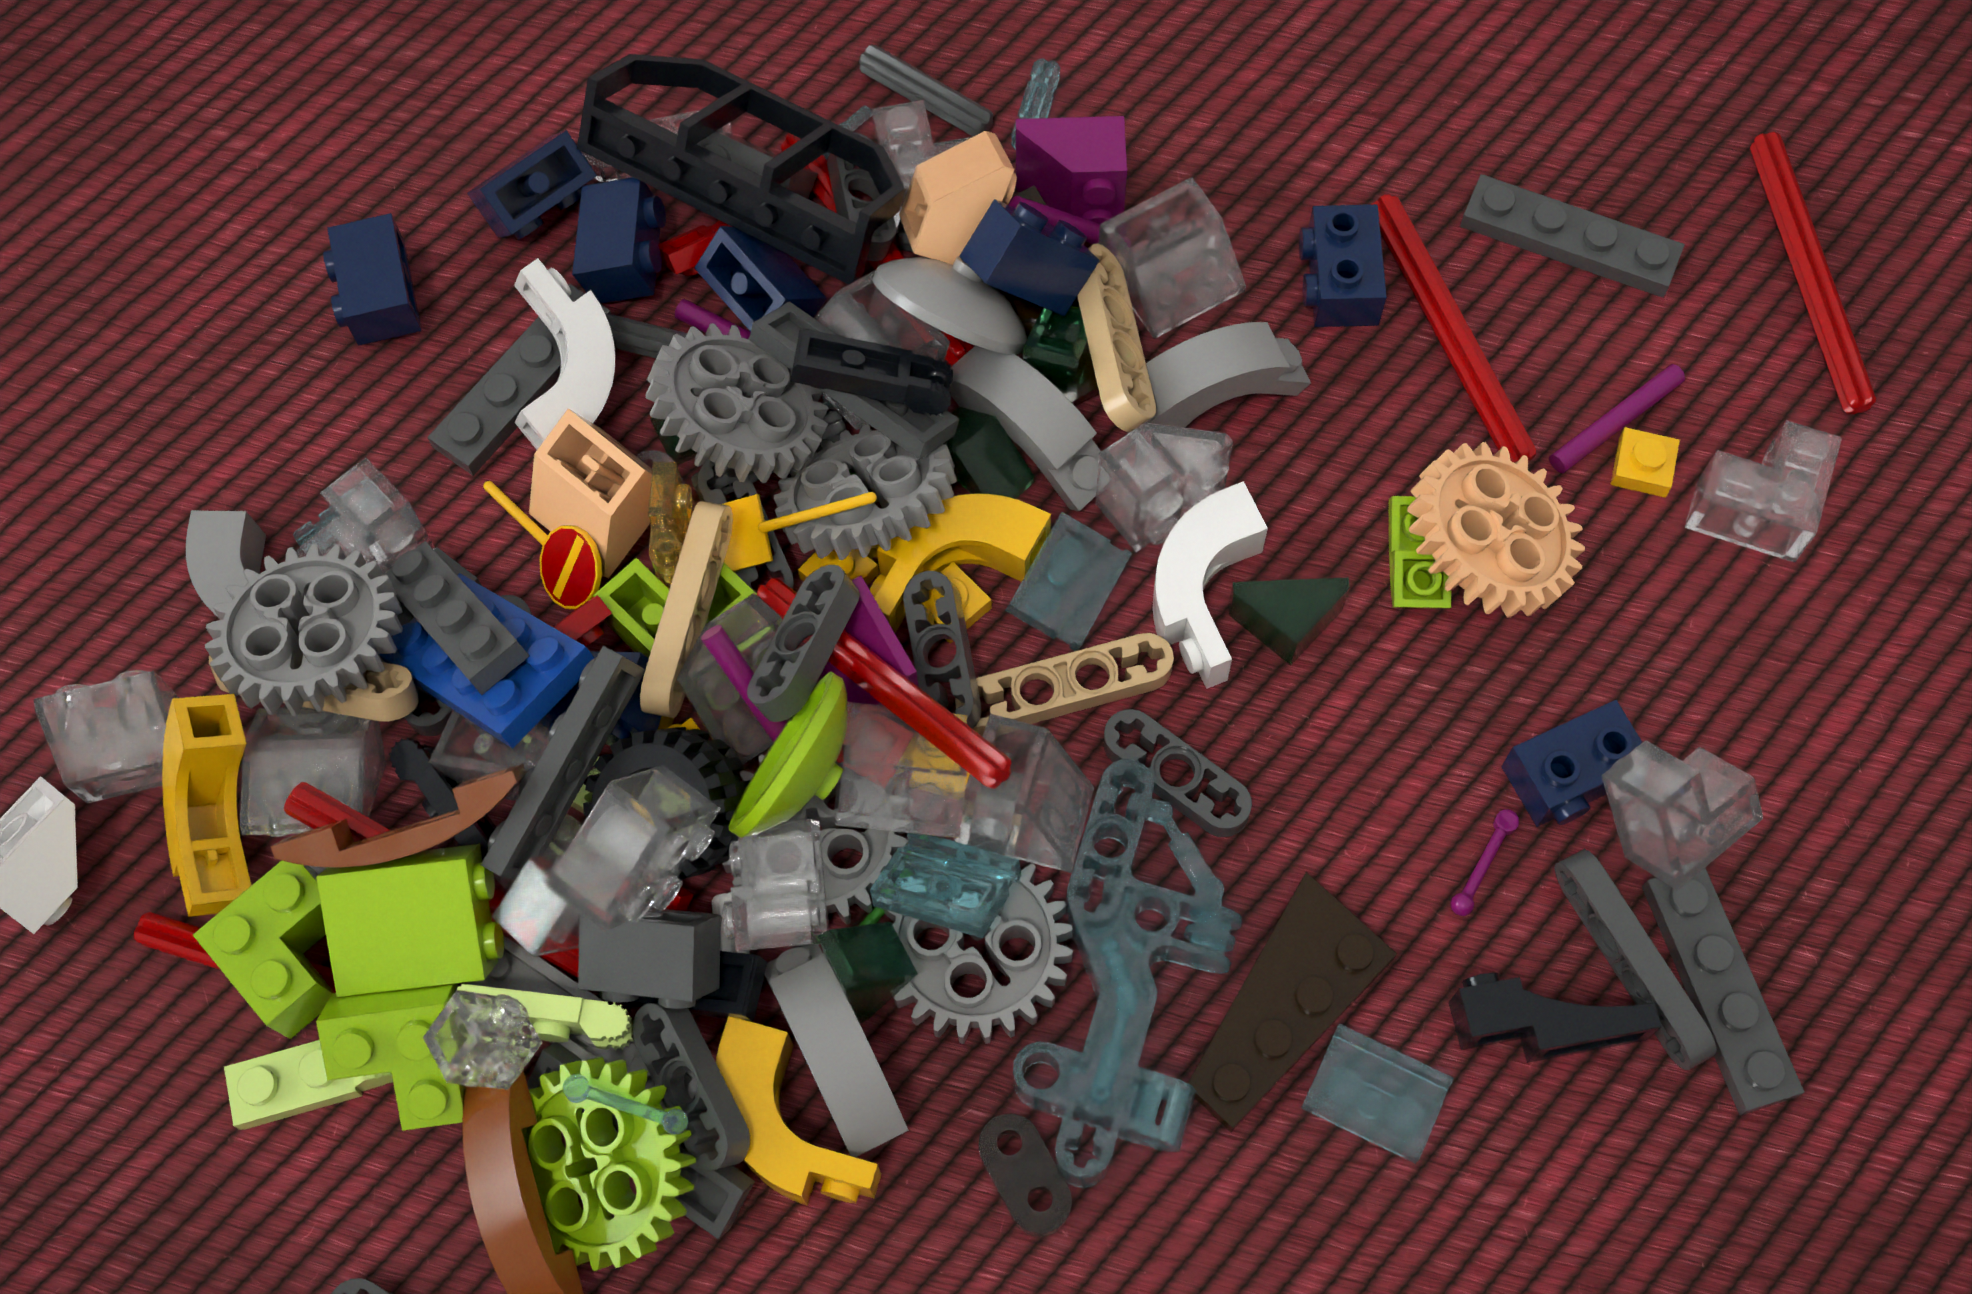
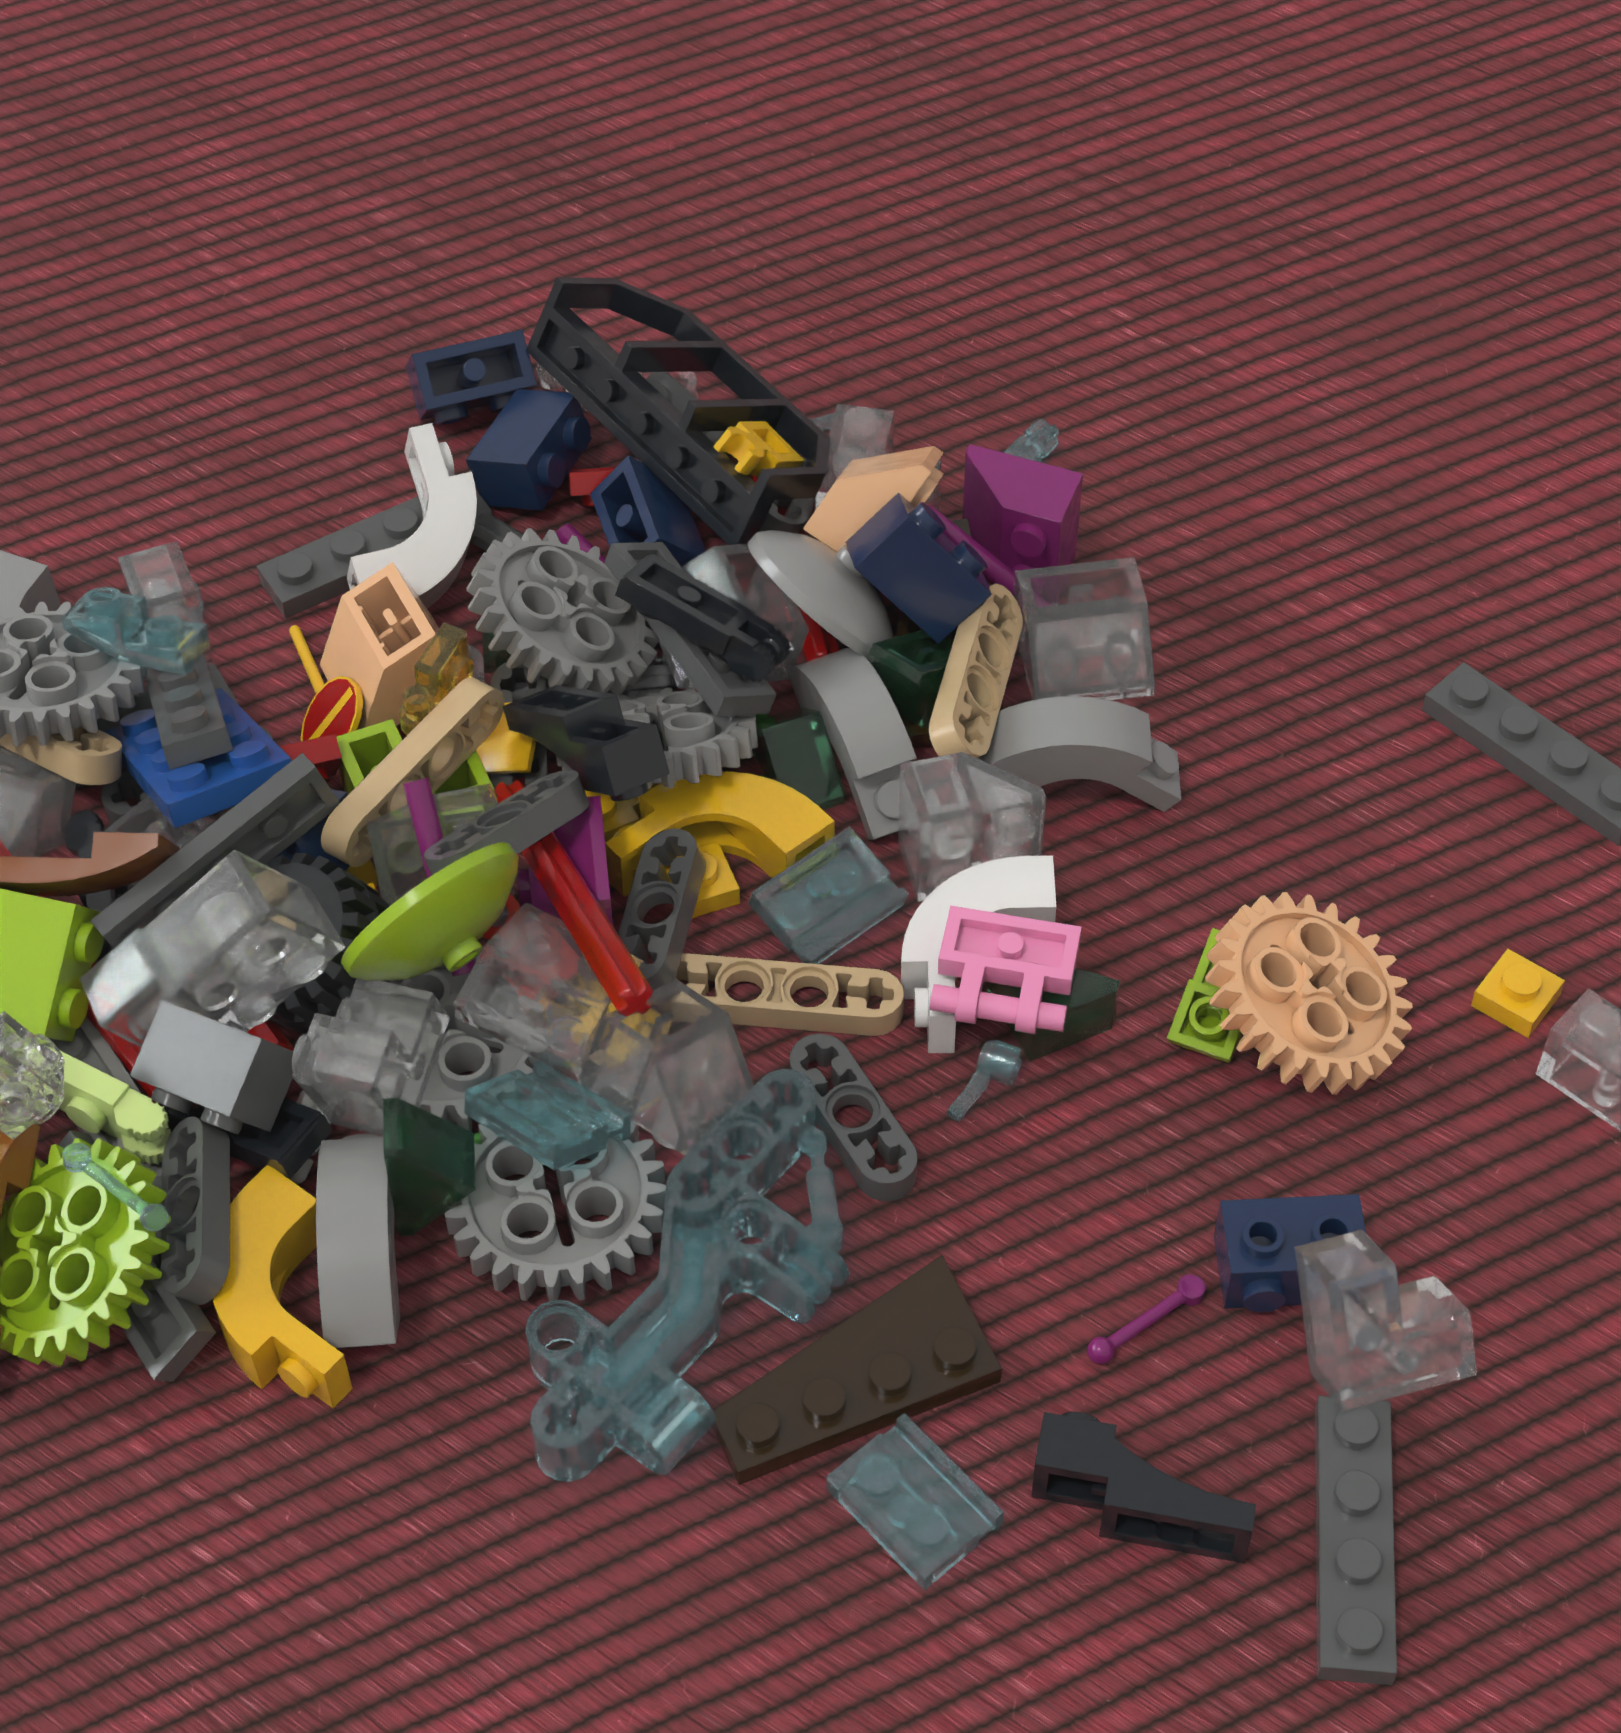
camera: 20 degrees right, 15 degrees down
(359, 564) = (123, 629): none -> clear light blue slope
(372, 280) = (275, 412): dark blue brick -> none
(828, 522) = (592, 738): none -> black slope
(835, 184) = (757, 448): none -> yellow plate
(920, 86) = (909, 414): dark grey axle -> none
(1024, 1173) = (497, 1434): clear smoke plate -> none
(1256, 590) = (1011, 953): none -> bright pink plate
(1271, 680) = (996, 1062): none -> clear light blue hand
(1344, 265) = (1268, 700): dark blue brick -> none
(1452, 330) = (1361, 799): red axle -> none
(1617, 418) = (1514, 938): magenta bar -> none
(1635, 958) = (1265, 1469): dark grey beam -> none

